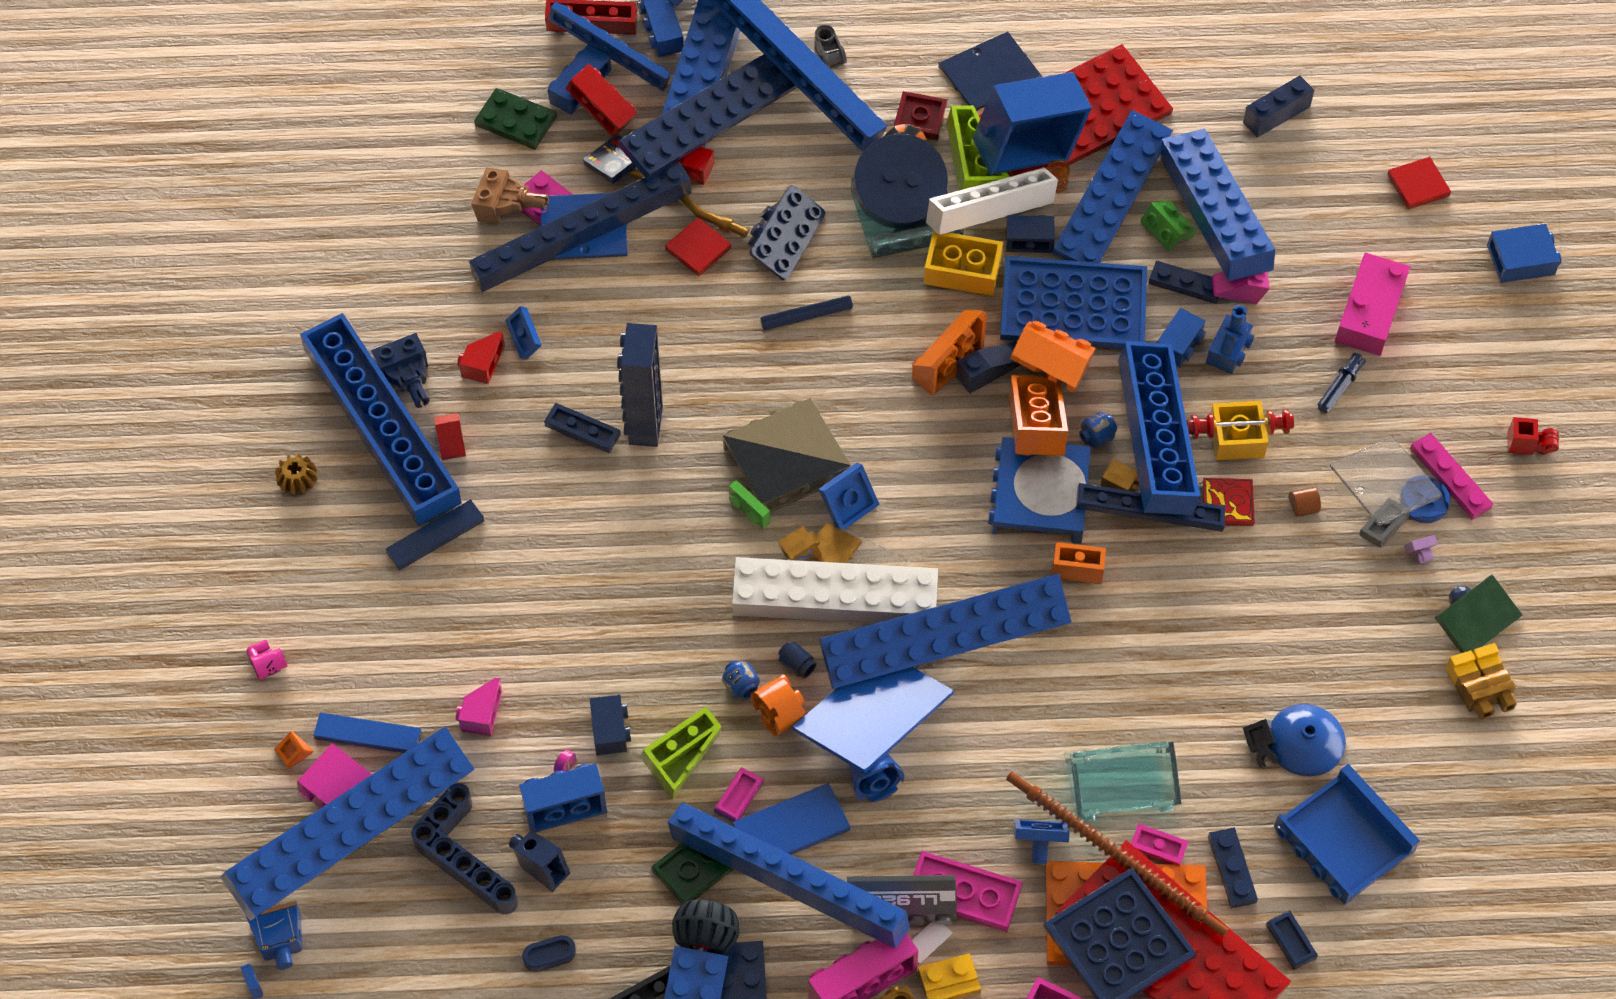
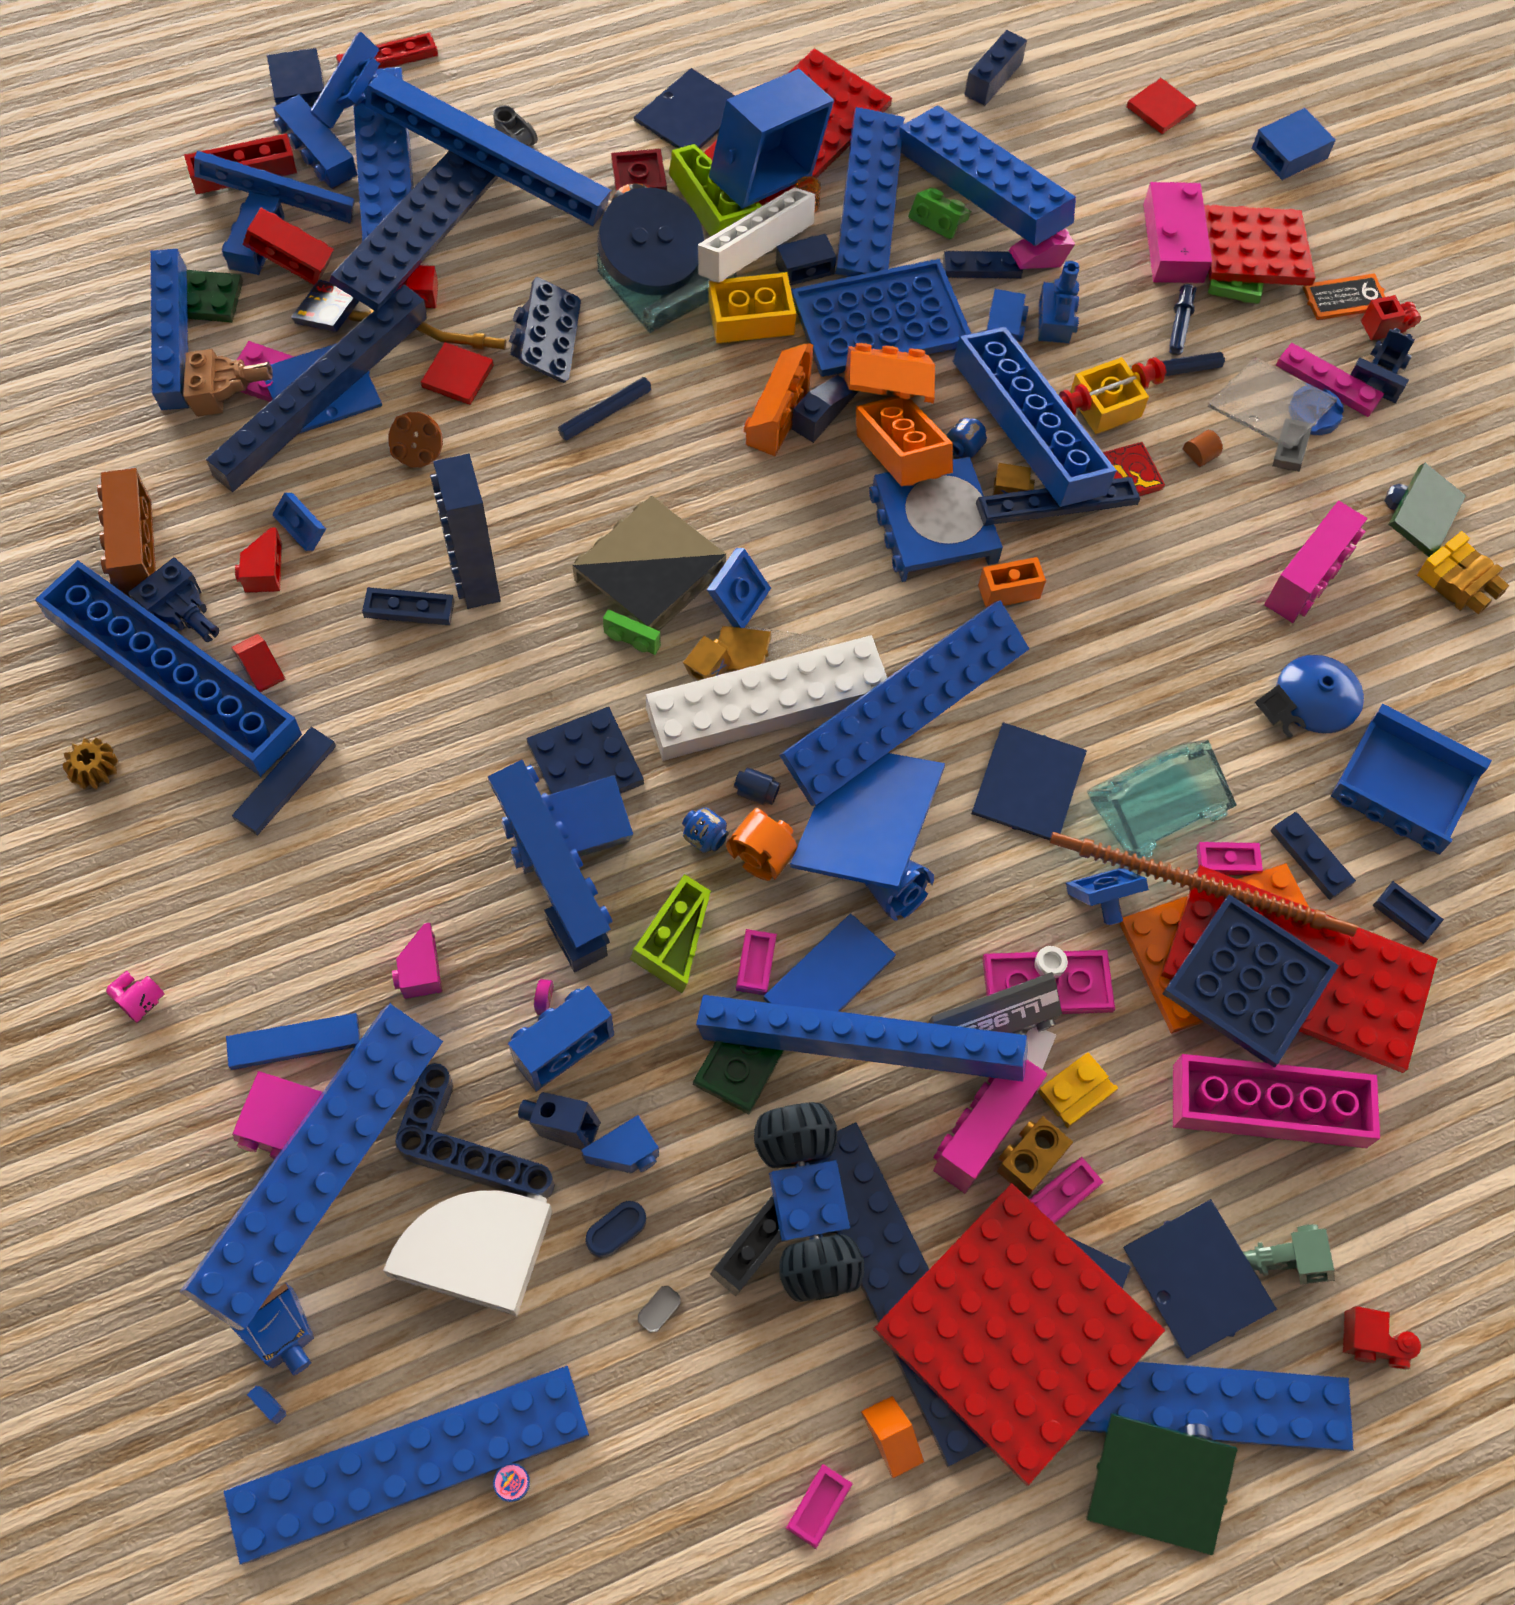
camera: 25 degrees left, 5 degrees up
(292, 749) = (209, 1093): orange slope -> none
(388, 300) = (127, 529): none -> dark orange brick
(440, 927) = (474, 1248): none -> white brick
(481, 141) = (168, 328): none -> blue brick
(577, 896) = (624, 1148): none -> blue slope
(605, 656) = (549, 854): none -> blue brick
(630, 289) = (402, 437): none -> dark orange plate
(631, 639) = (591, 816): none -> blue brick
(671, 595) = (584, 753): none -> dark blue plate
(970, 874) = (1051, 960): none -> white tile
(1023, 729) = (1029, 782): none -> dark blue piece
(1327, 424) = (1194, 363): none -> dark blue axle
(1349, 628) = (1317, 562): none -> dark pink brick
(1404, 367) = (1237, 290): none -> bright green plate
(1422, 548) = (1340, 459): lavender tile -> none
(1441, 336) = (1258, 245): none -> plate
(1502, 404) = (1343, 296): none -> piece
(1516, 468) = (1392, 355): none -> dark blue tile

